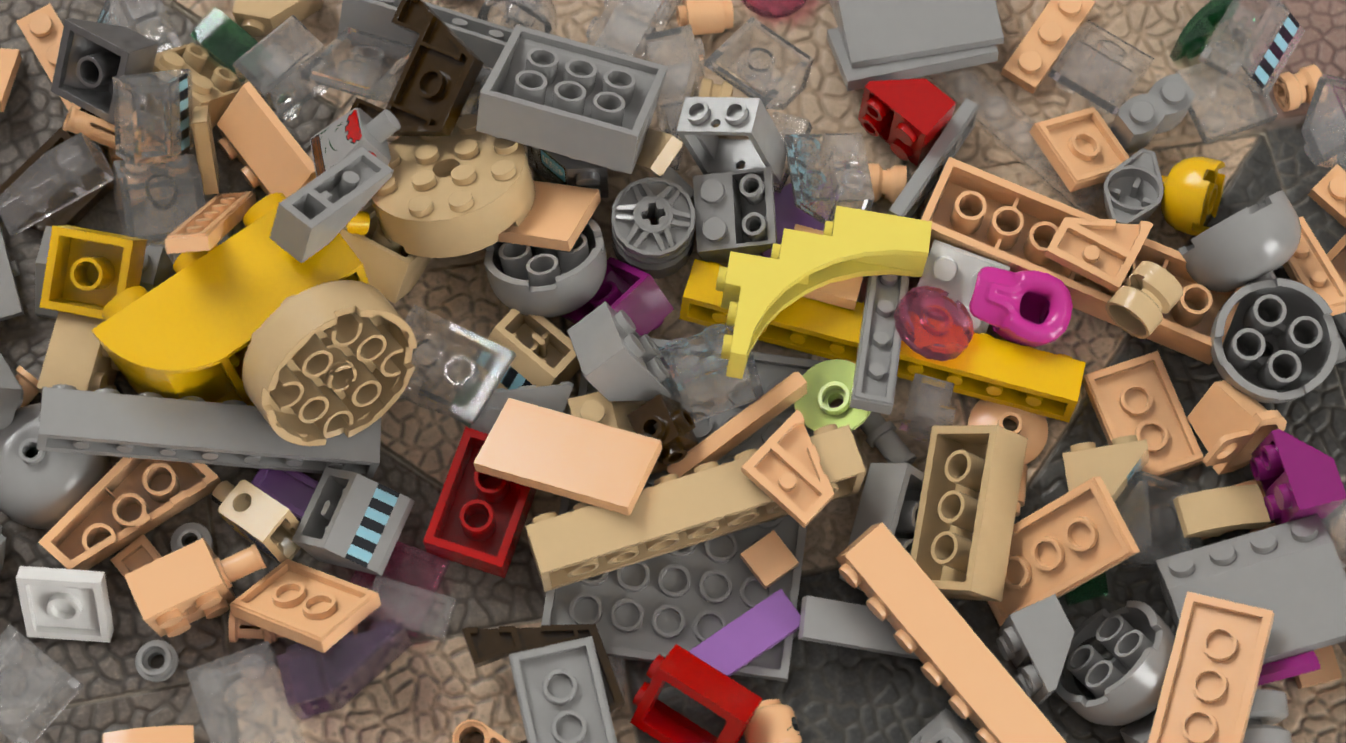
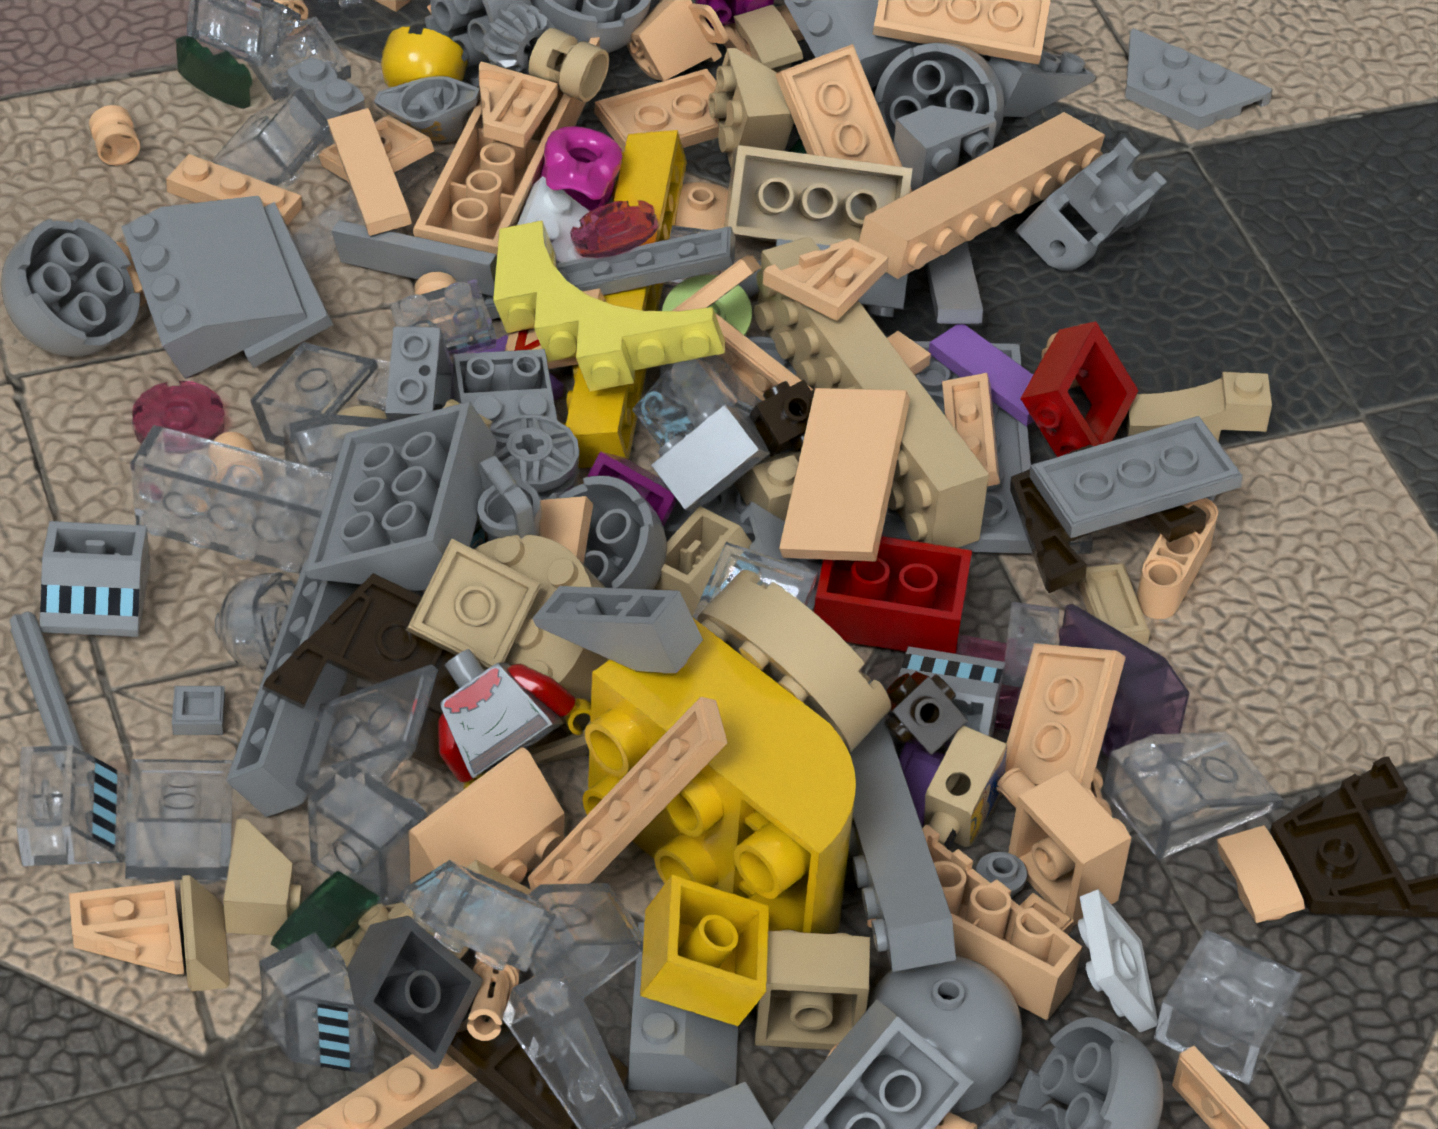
camera: 100 degrees left, 25 degrees down
(146, 654) = (1154, 878): light grey plate -> none
(307, 481) = (923, 711): none -> dark brown brick
(438, 133) = (473, 605): none -> tan tile
(471, 699) = (1113, 600): none -> tan tile
(546, 174) = (506, 504): none -> light grey piece
(658, 601) = (971, 414): none -> light nougat plate
(812, 374) = (721, 284): none -> light nougat tile
(906, 115) = (365, 270): red slope -> none
(1029, 127) = (369, 172): none -> light nougat tile
(1178, 252) = (514, 36): none -> light grey gear

